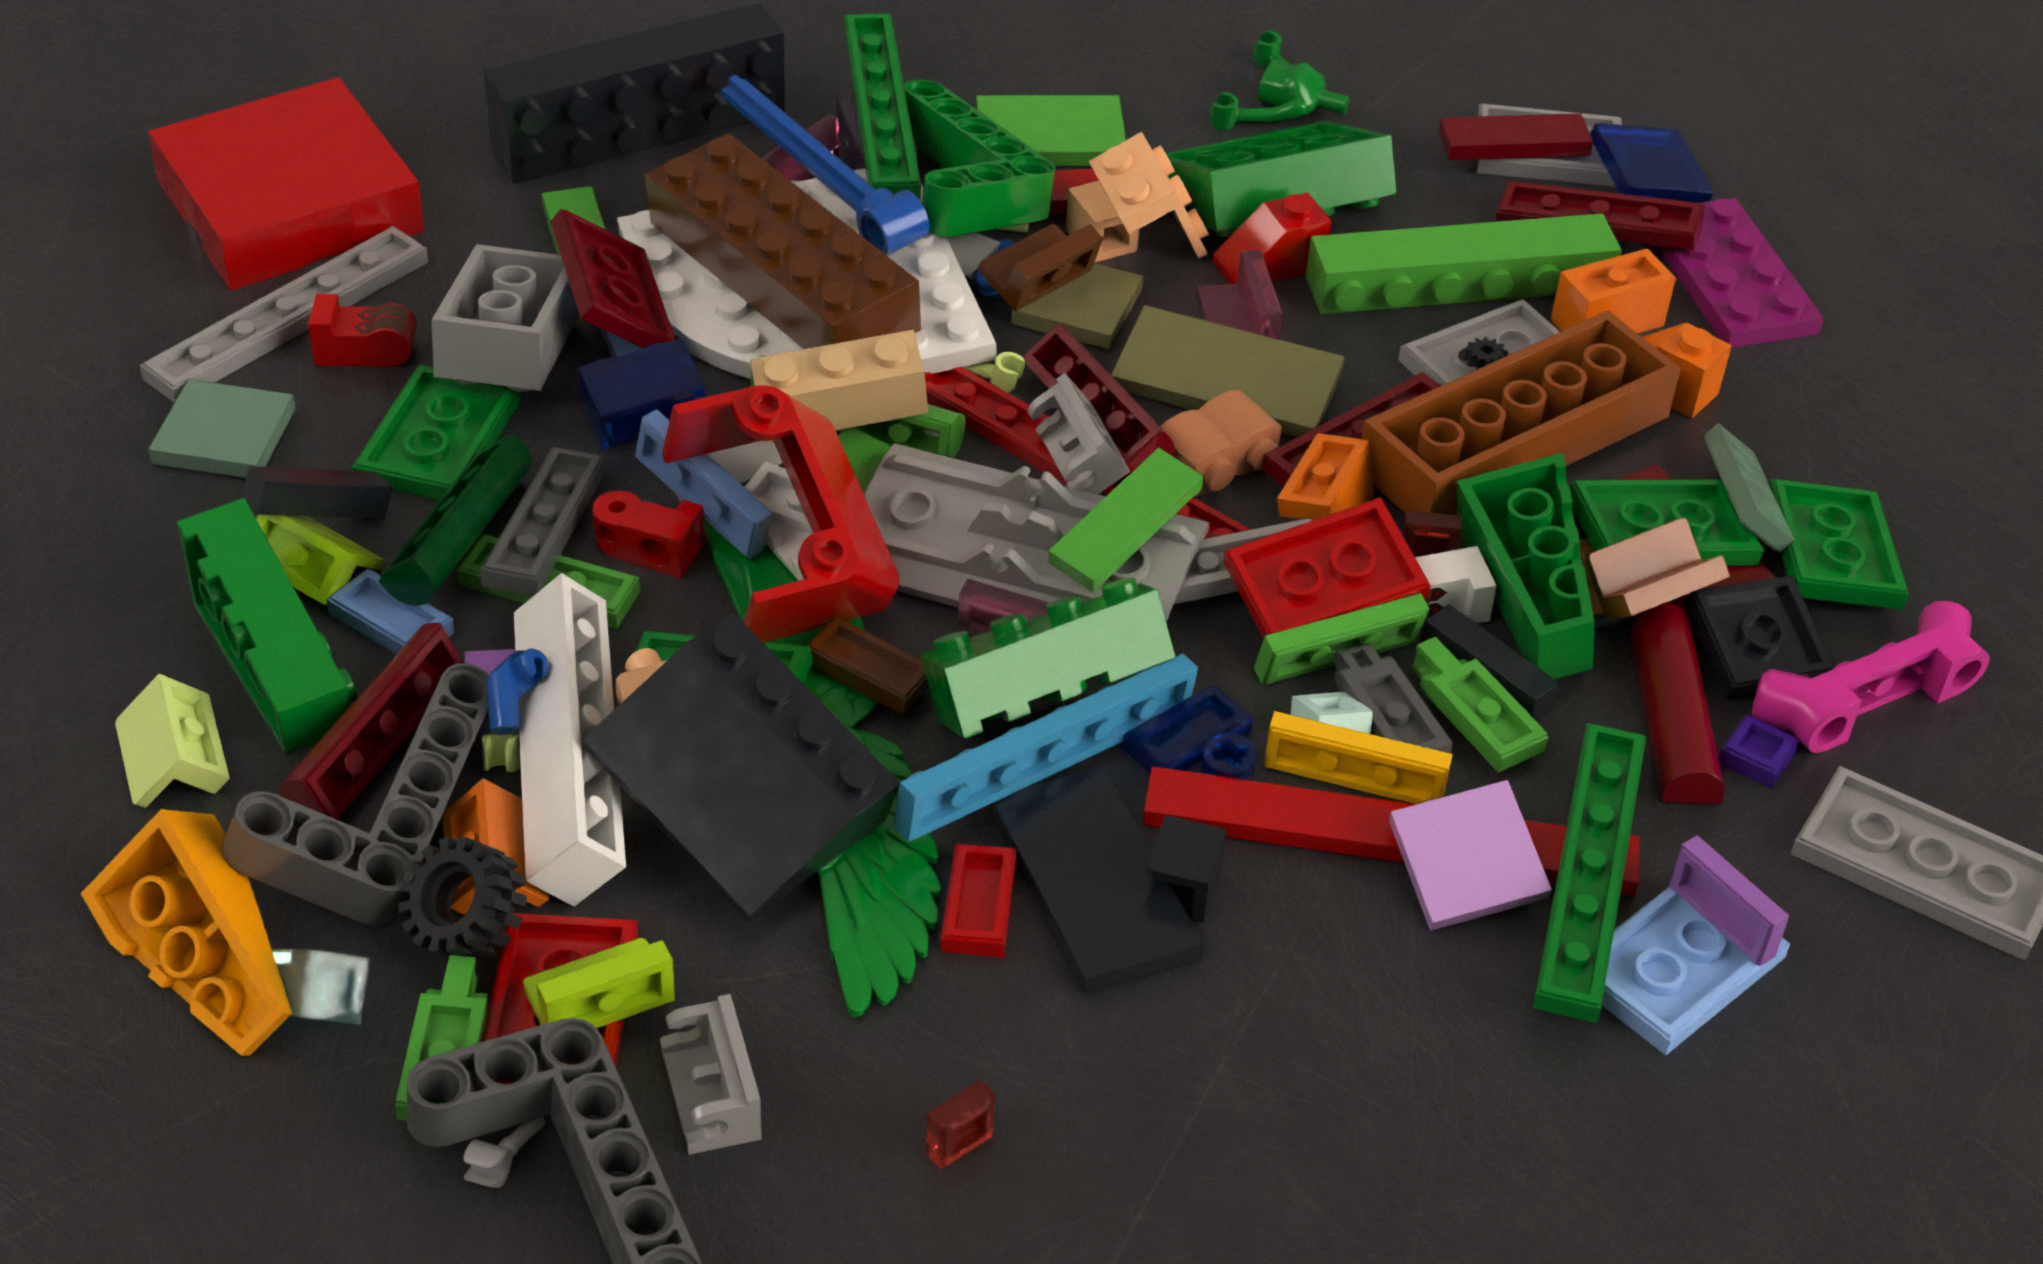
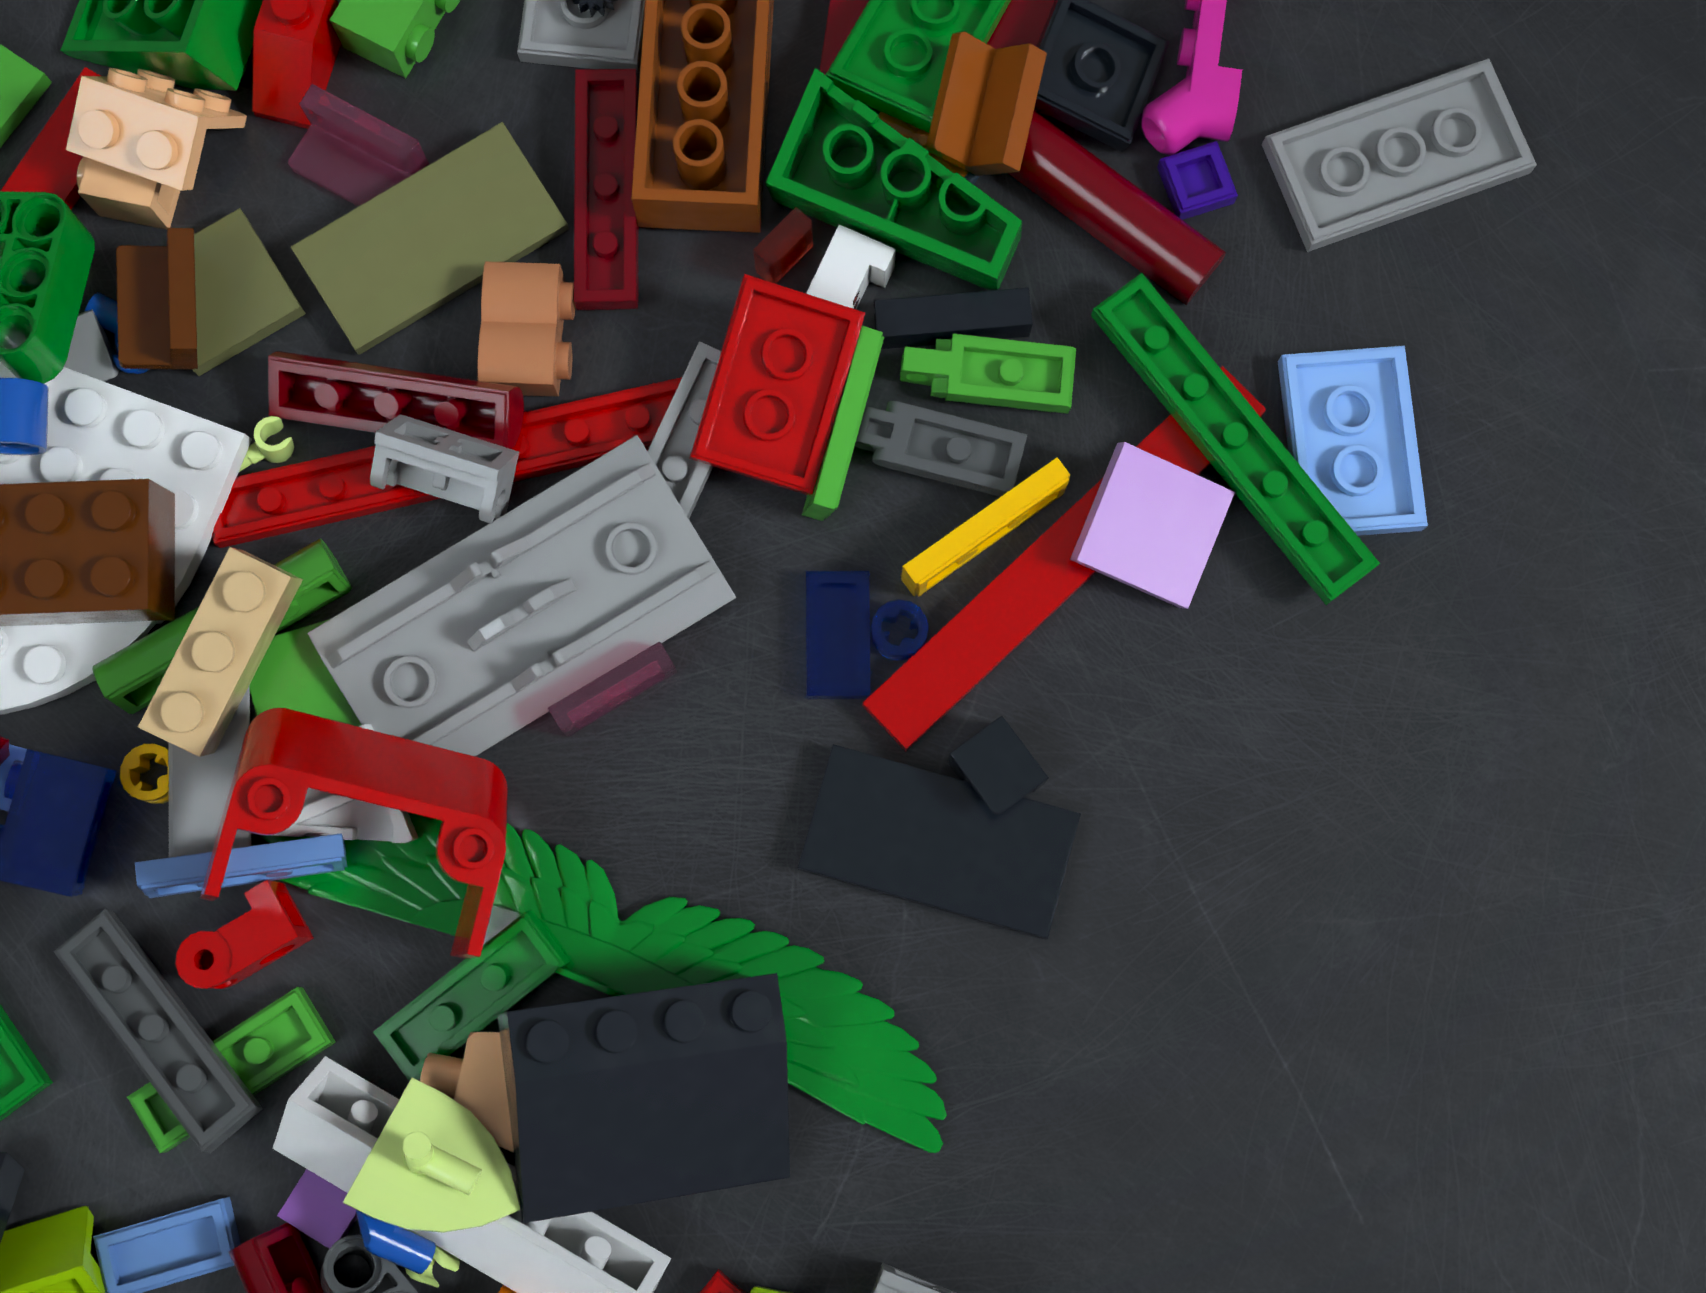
camera: 50 degrees left, 35 degrees up
(456, 522) = (100, 1120): dark green brick -> none
(579, 670) = (434, 1168): none -> yellowish green shield
(868, 665) = (568, 859): reddish brown tile -> none
(960, 1124) = (1126, 1157): clear red tile -> none
(979, 900) = (892, 955): red tile -> none
(1038, 748) = (789, 814): dark azure plate -> none
(1045, 655) = (703, 723): wedge -> none
(1125, 519) = (597, 519): bright green tile -> none
(1328, 478) = (659, 284): orange panel -> none
(1333, 709) = (918, 505): light aqua plate -> none
(1728, 900) = (1356, 370): medium lavender tile -> none

